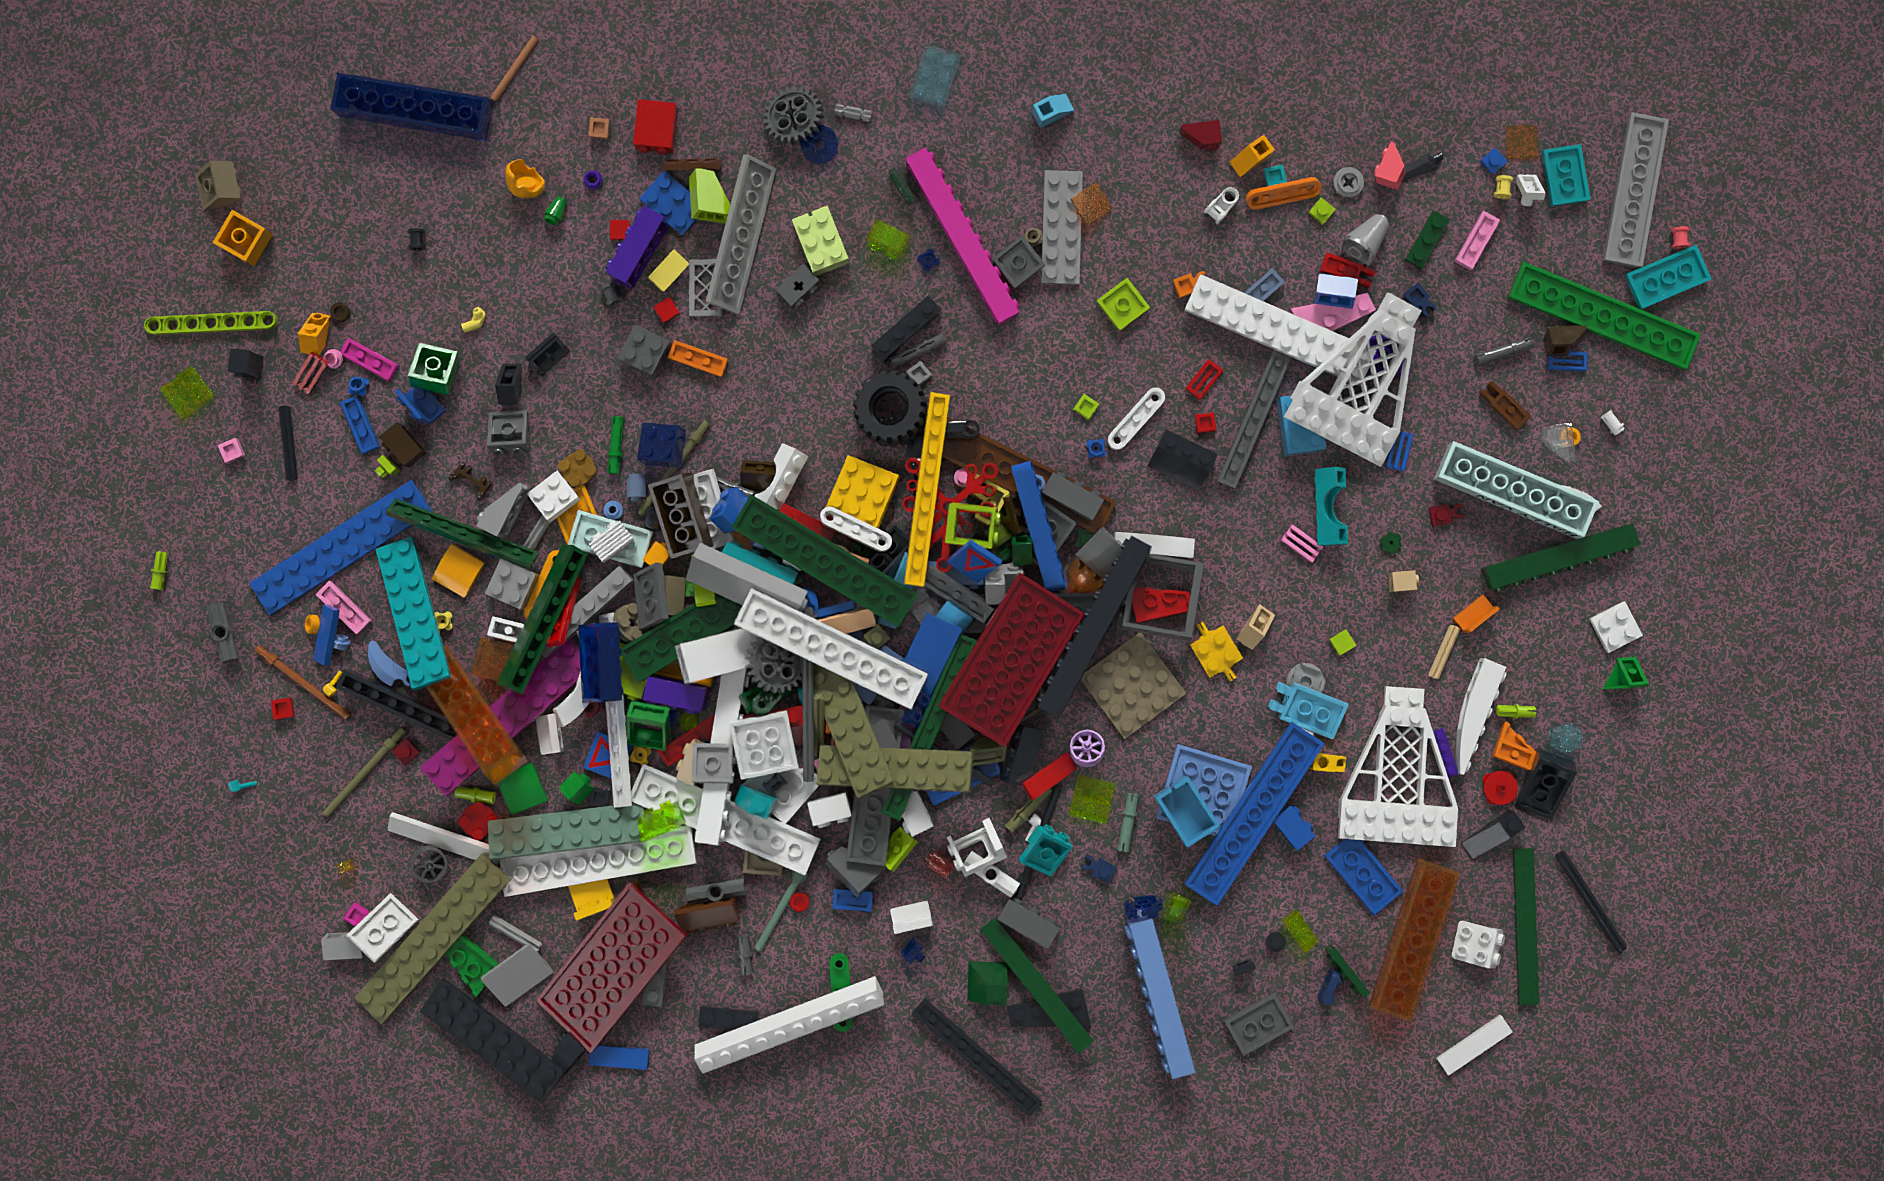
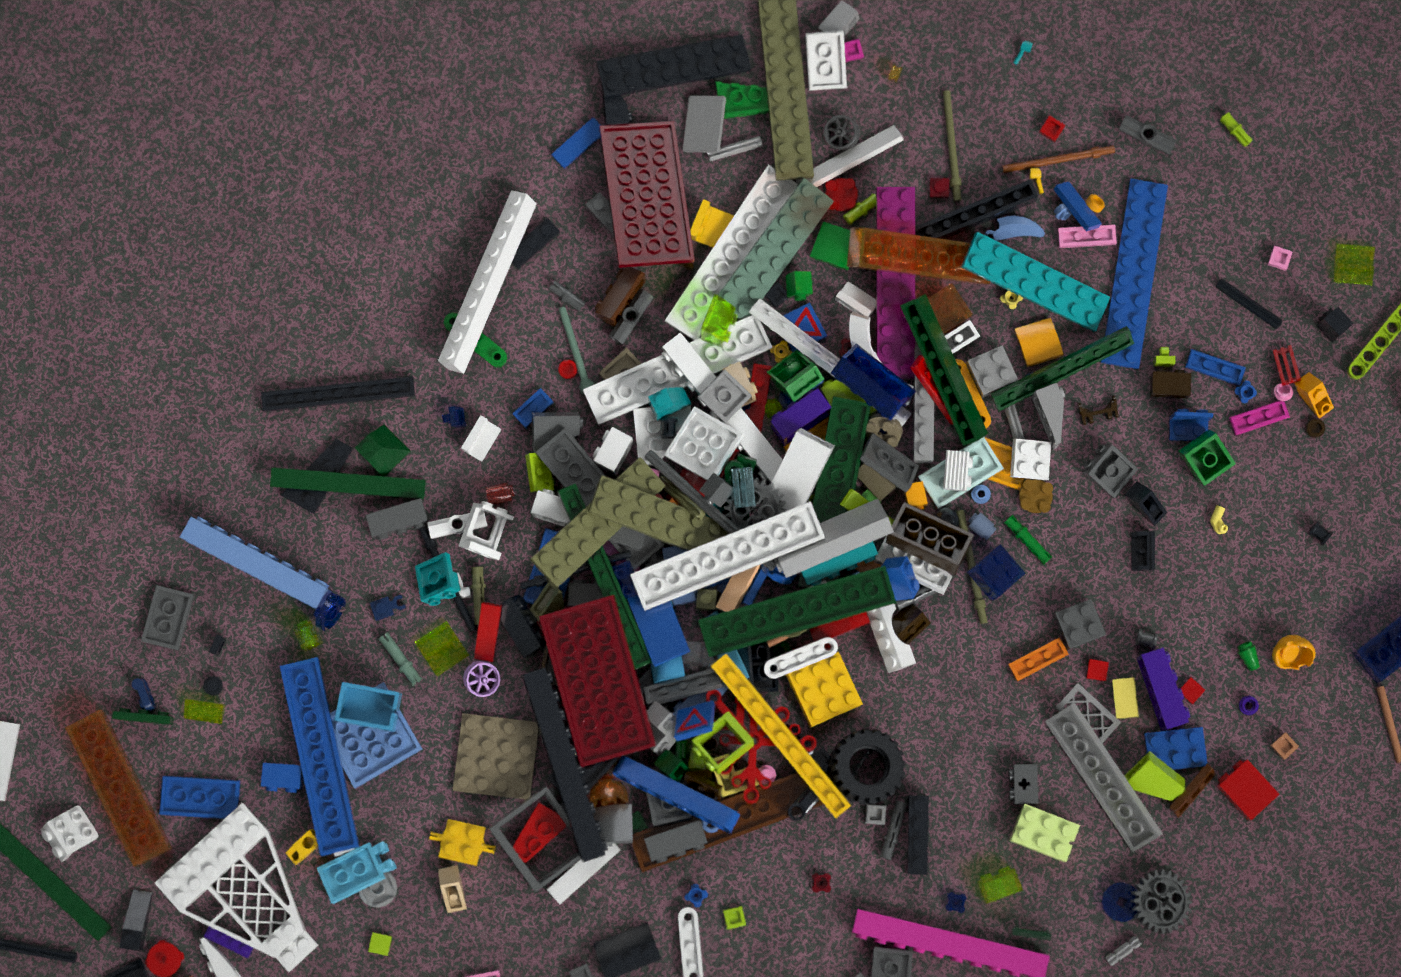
camera: 135 degrees right, 5 degrees down
(763, 679) = (750, 487): none -> clear light blue tile
(789, 702) = (716, 490): none -> dark grey brick
(998, 367) = (826, 884): none -> dark red plate

